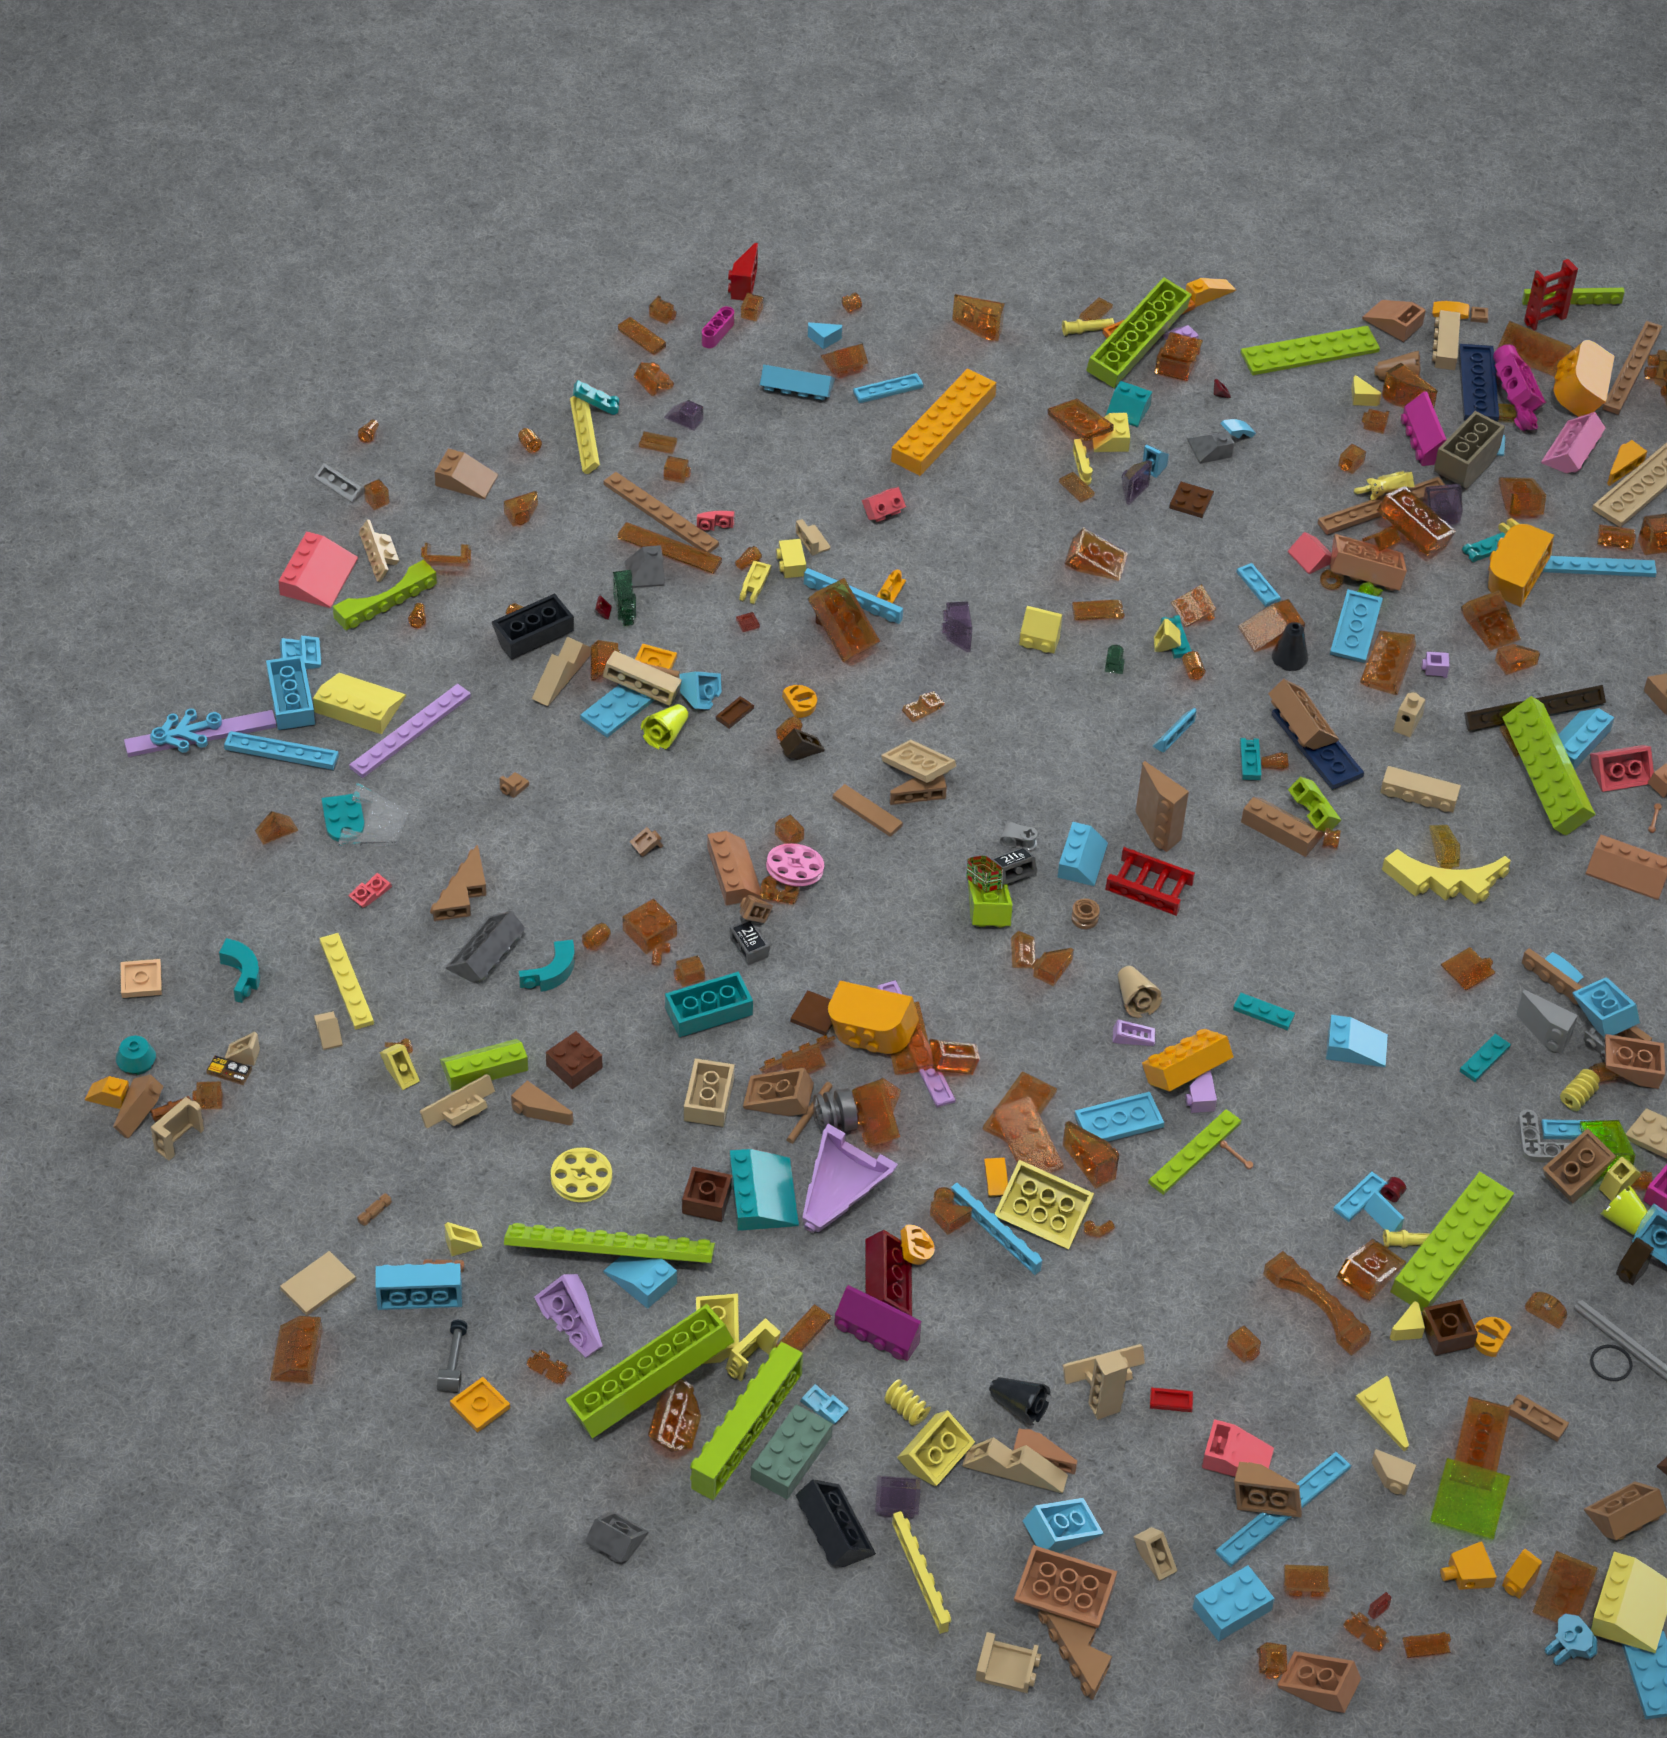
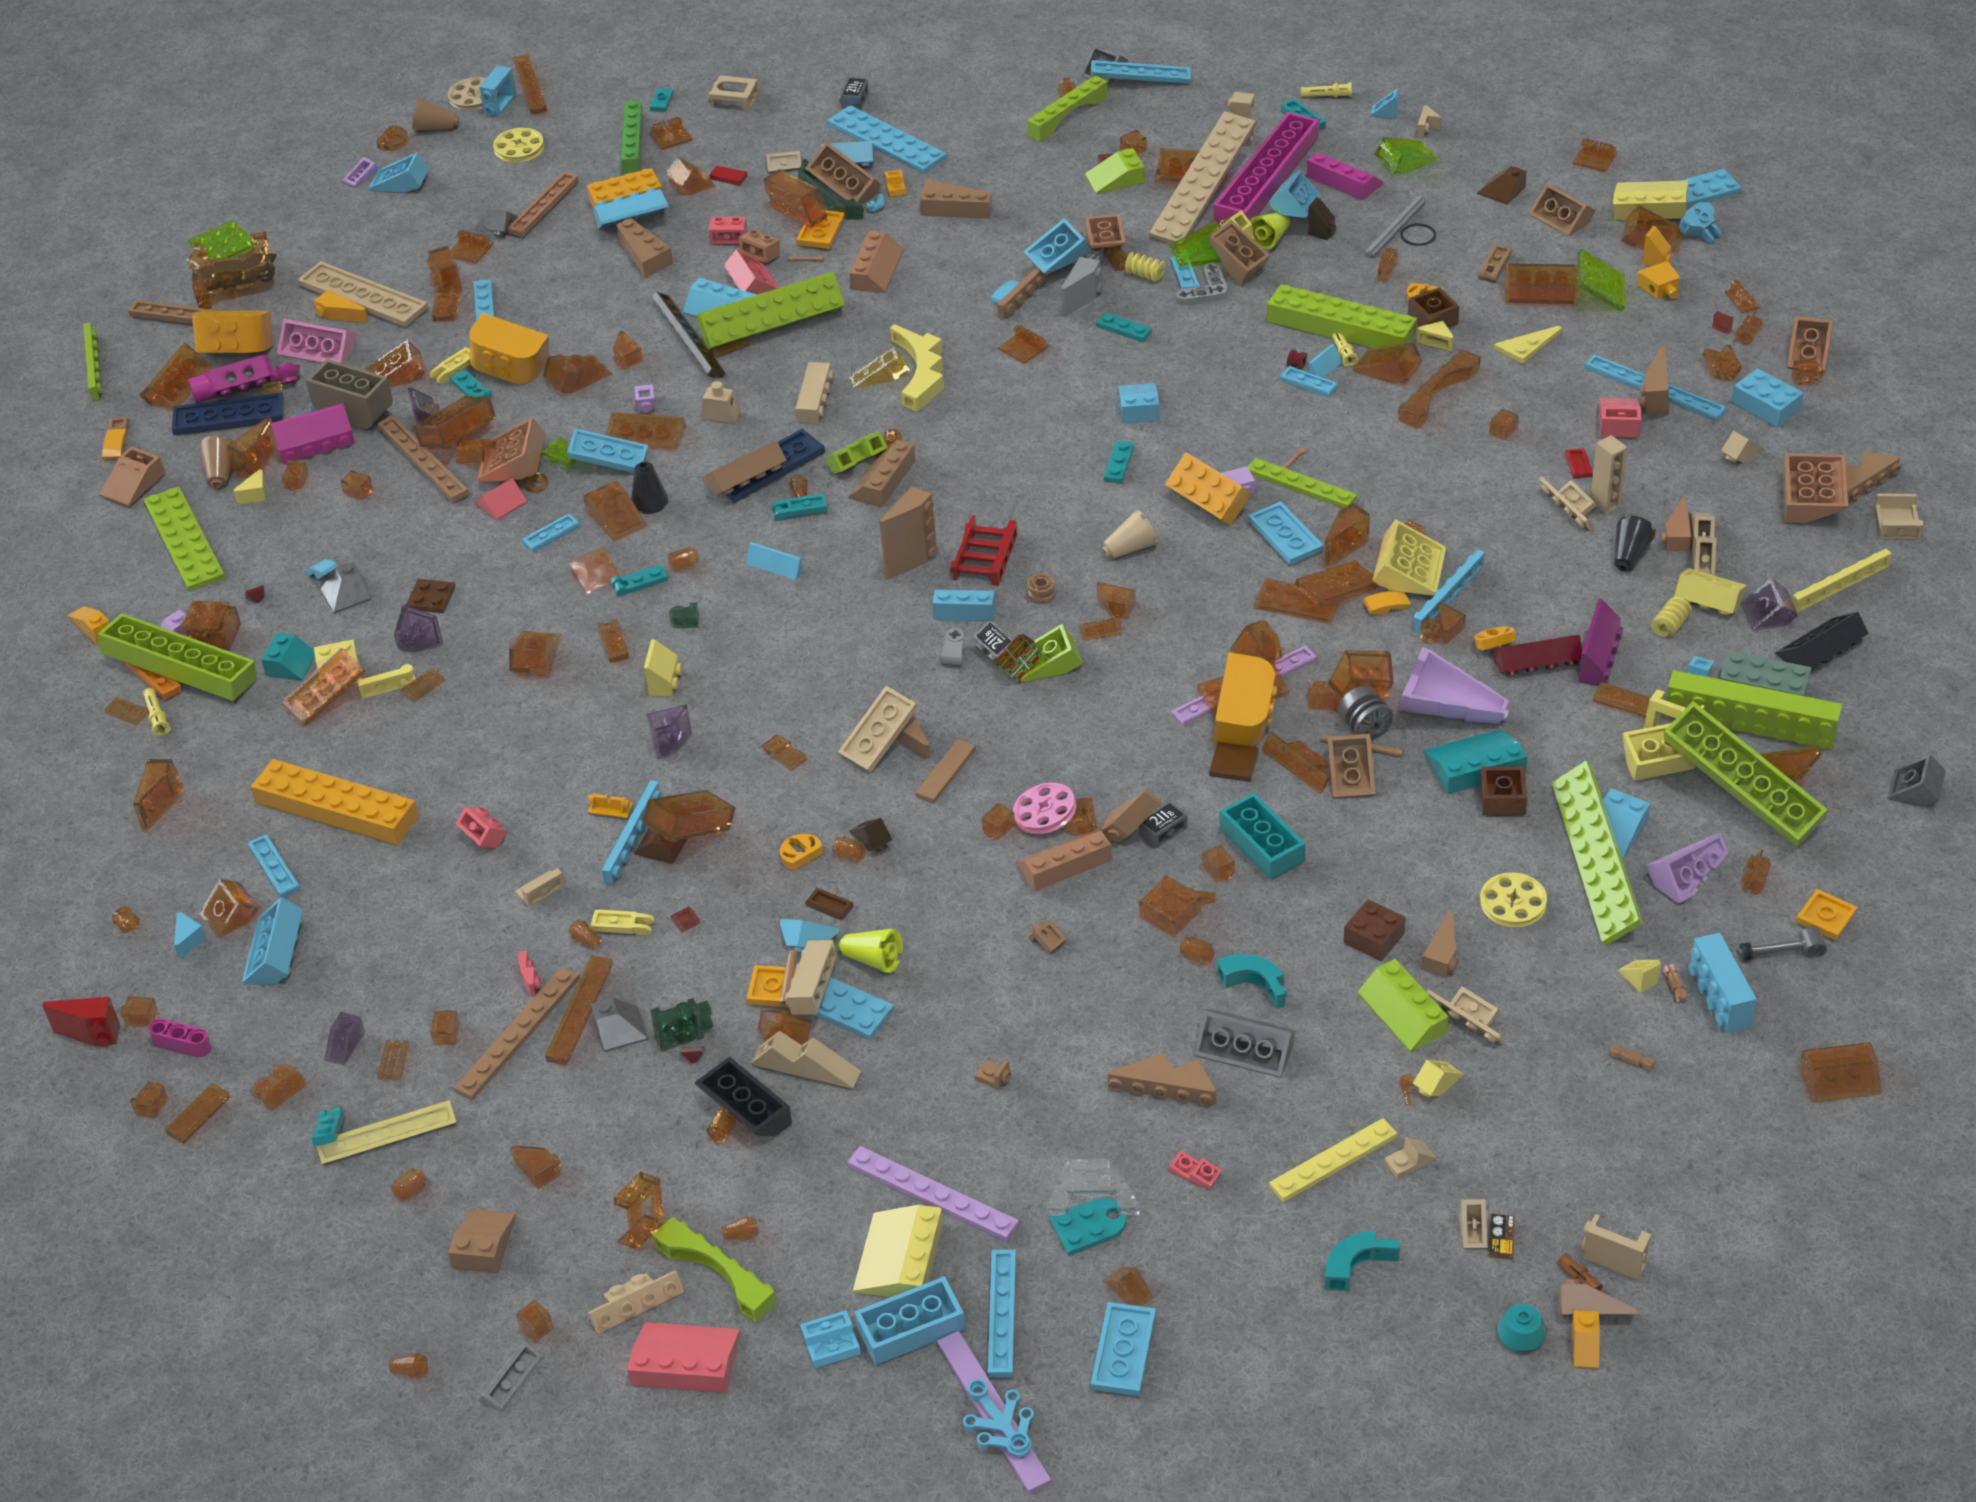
camera: 95 degrees left, 5 degrees down
(141, 978) = (1405, 1358): light nougat plate -> none
(208, 1095) = (1550, 1239): clear orange brick -> none
(220, 813) = (1123, 1349): none -> medium azure plate
(317, 1283) = (1746, 1082): tan tile -> none
(709, 1092) = (1376, 813): tan brick -> none
(791, 558) = (580, 894): light yellow brick -> none
(1062, 1525) = (1748, 505): medium azure slope -> none
(1126, 1038) = (1178, 543): lavender slope -> none
(1158, 458) = (381, 622): medium azure slope -> none
(1167, 637) = (651, 578): light yellow slope -> none
(1386, 484) = (396, 451): light yellow animal -> none
(1393, 1472) = (1592, 328): tan slope -> none
(1447, 340) = (166, 438): tan brick -> none
(1560, 301) = (112, 355): red fence -> none

